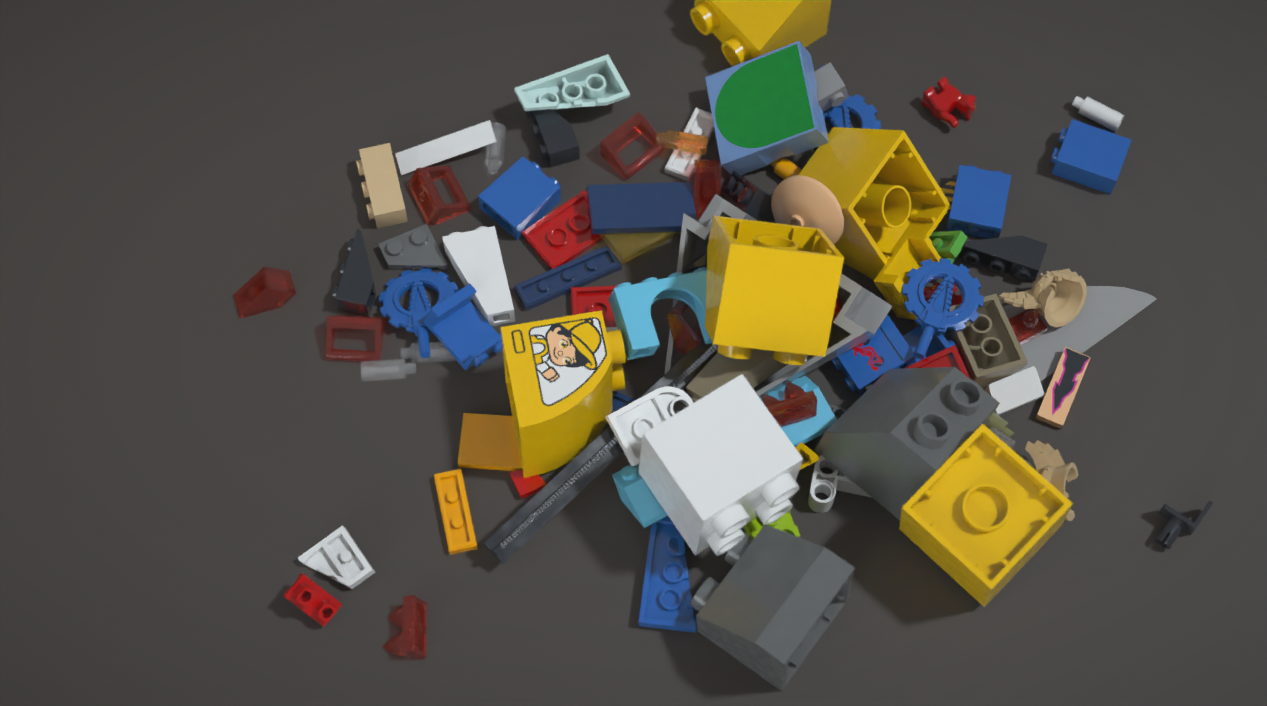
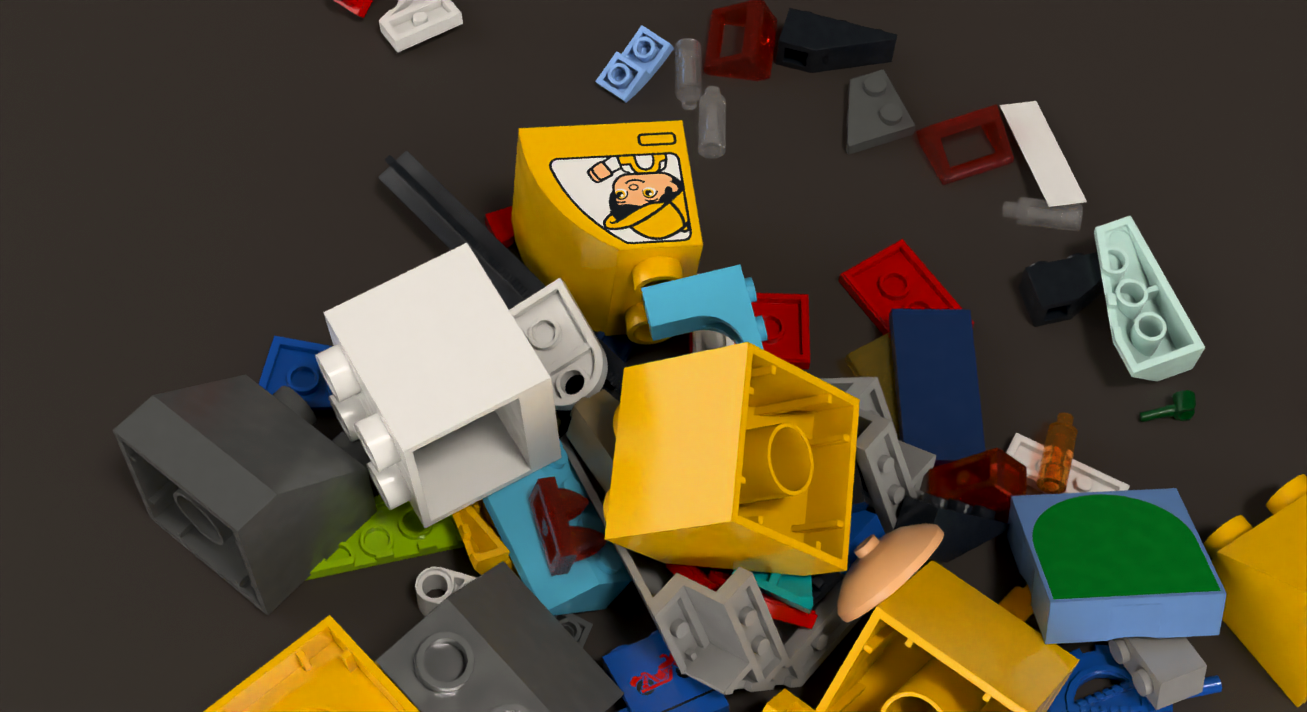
camera: 90 degrees right, 5 degrees down
(379, 407) = (636, 65): none -> light blue slope
(381, 186) = (976, 76): tan brick -> none
(413, 620) = (311, 85): clear red tile -> none
(419, 303) = (770, 113): blue bar -> none
(455, 511) = (468, 144): light orange tile -> none
(464, 329) = (740, 154): blue panel -> none
(480, 263) = (832, 186): white slope -> none
(520, 197) = (958, 237): blue brick -> none
(564, 277) = (827, 291): dark blue tile -> none
(625, 135) = (1064, 373): clear red tile -> none
(635, 77) = (1182, 408): none -> dark green hand

